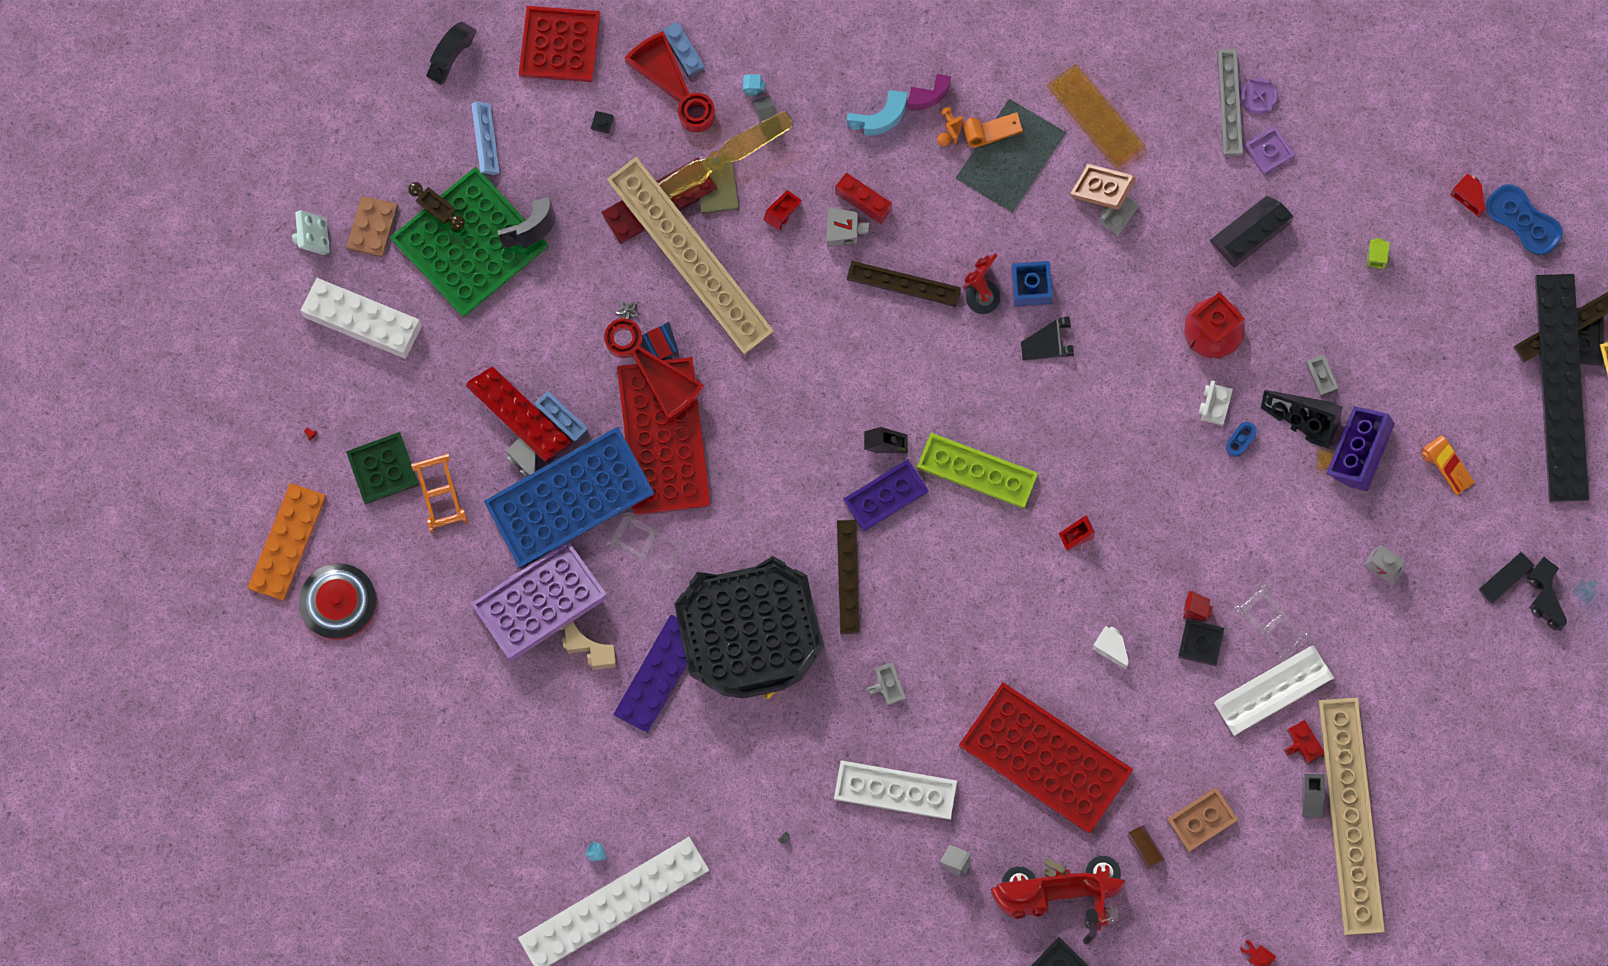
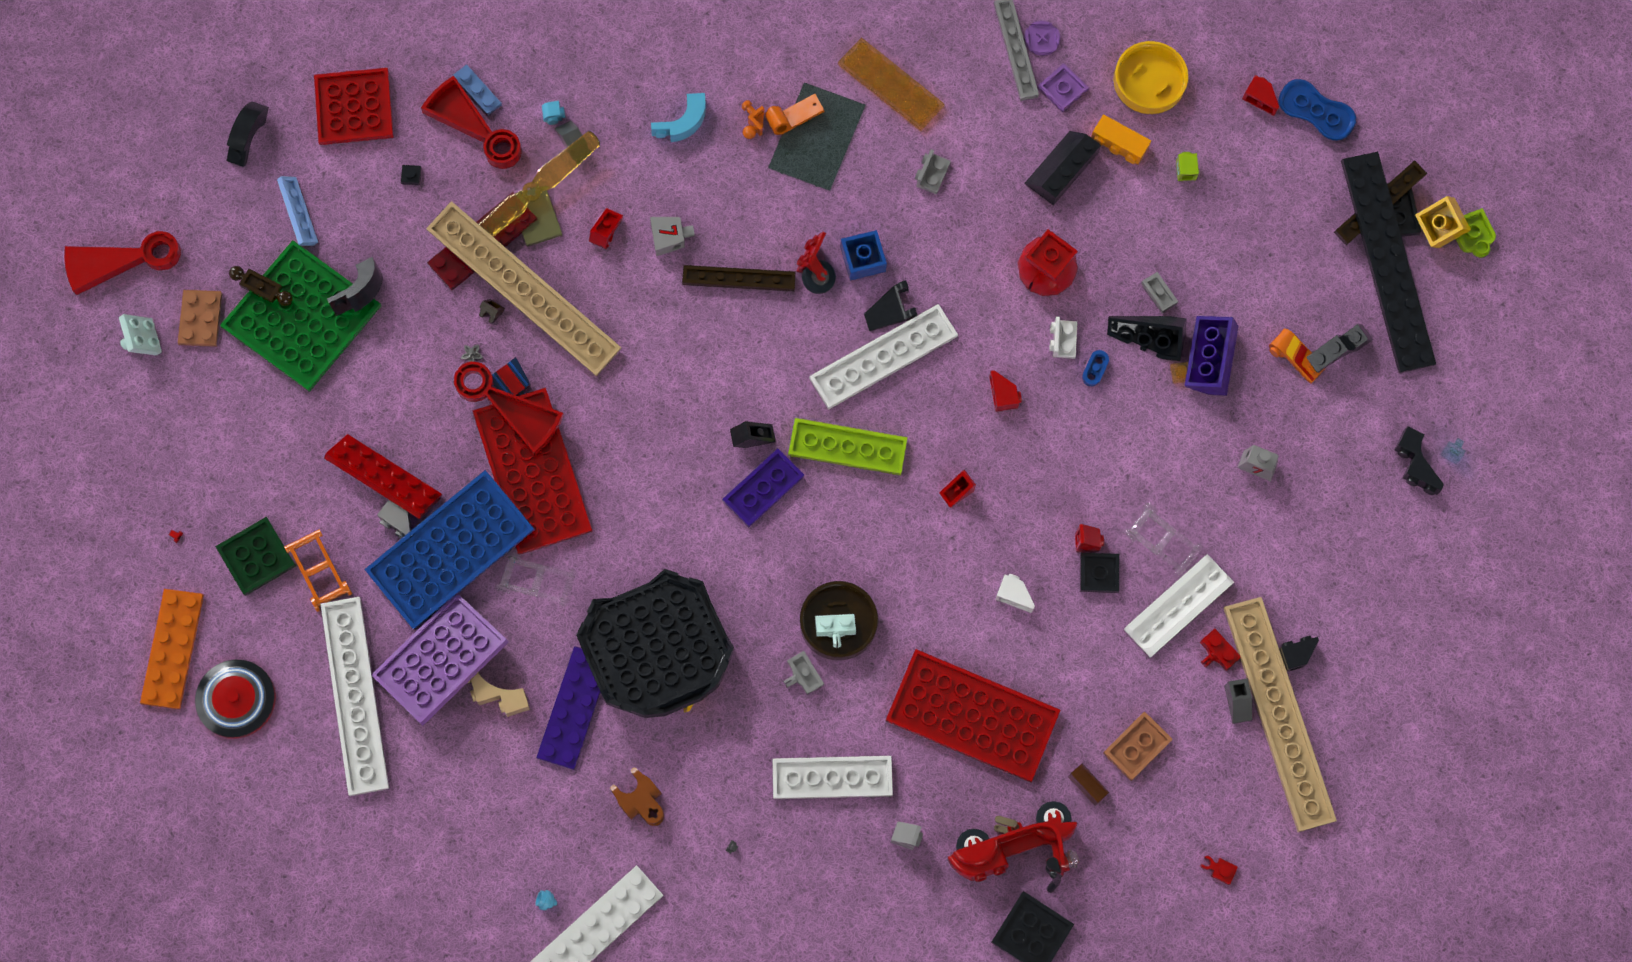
camera: 20 degrees left, 0 degrees up
(282, 156) = (94, 265): none -> red piece
(361, 318) = (205, 410): white brick -> none
(451, 621) = (354, 696): none -> white plate
(561, 417) = (426, 471): medium blue plate -> none
(657, 270) = (492, 308): none -> dark brown tile
(705, 775) = (641, 800): none -> dark orange piece
(848, 577) = (742, 575): dark brown plate -> none
(863, 198) = (682, 202): red brick -> none
(923, 98) = (722, 96): magenta brick -> none
(928, 644) = (835, 626): none -> light aqua plate
(932, 639) = (839, 599): none -> dark brown piece
(1031, 388) = (883, 356): none -> white plate
(1103, 186) = (913, 149): plate -> none
(1144, 446) = (1004, 392): none -> red slope
(1315, 214) = (1120, 139): none -> light orange brick
(1360, 156) = (1150, 77): none -> yellow piece
(1382, 761) = (1298, 654): none -> black slope
(1492, 463) = (1339, 347): none -> black arch
(1506, 577) = (1375, 453): black tile -> none

